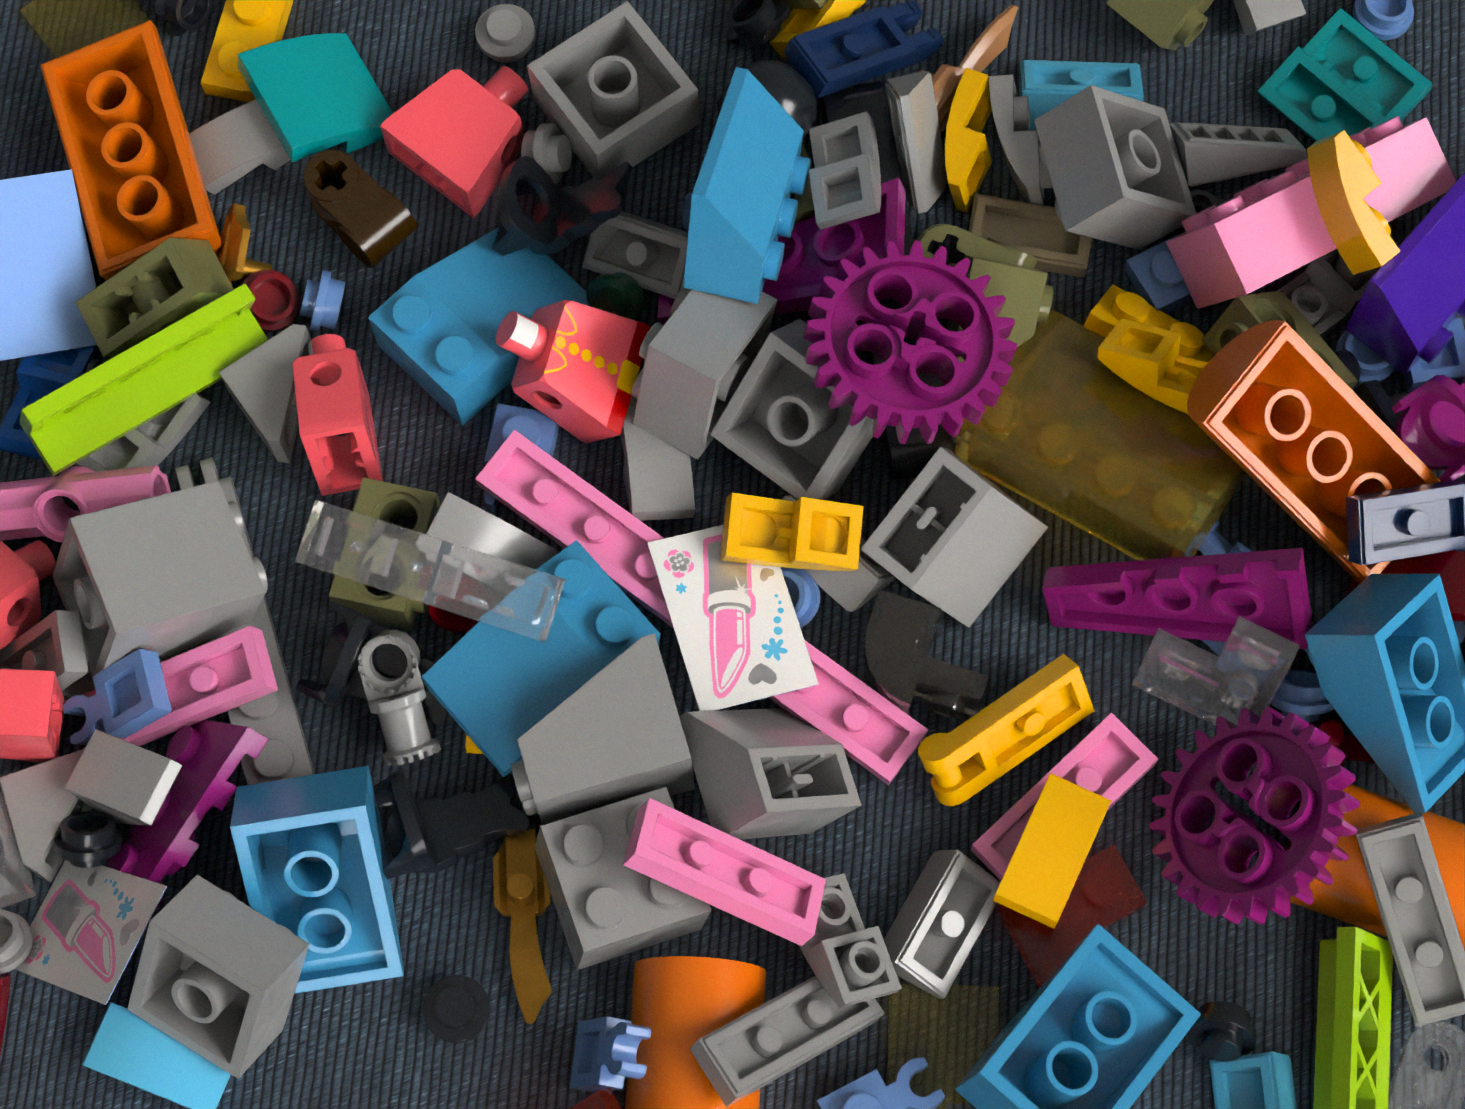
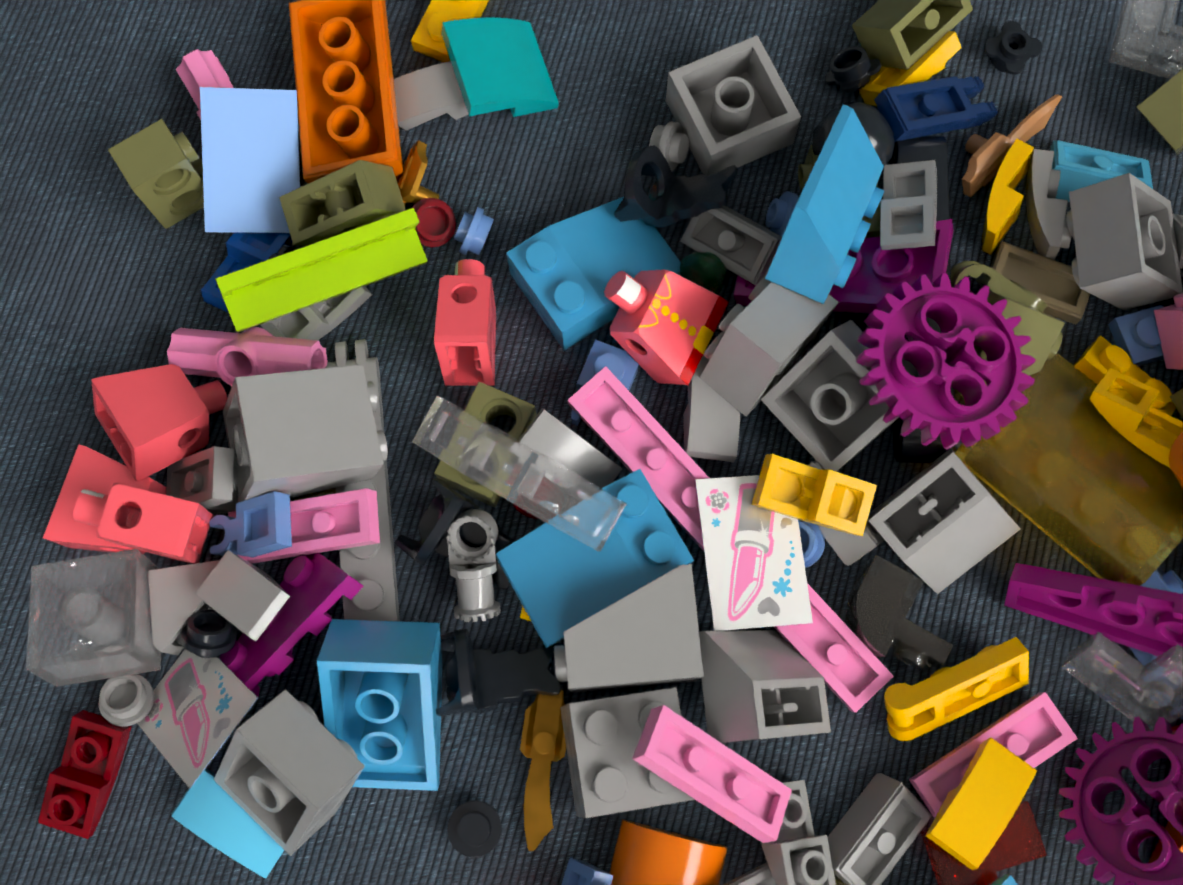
camera: 10 degrees right, 5 degrees up
(266, 390) = (416, 293): light grey slope -> none
(360, 213) = (515, 166): dark brown piece -> none
(460, 134) = (604, 118): coral torso -> none
(505, 33) = (653, 44): light grey plate -> none
(917, 138) = (967, 186): light grey slope -> none

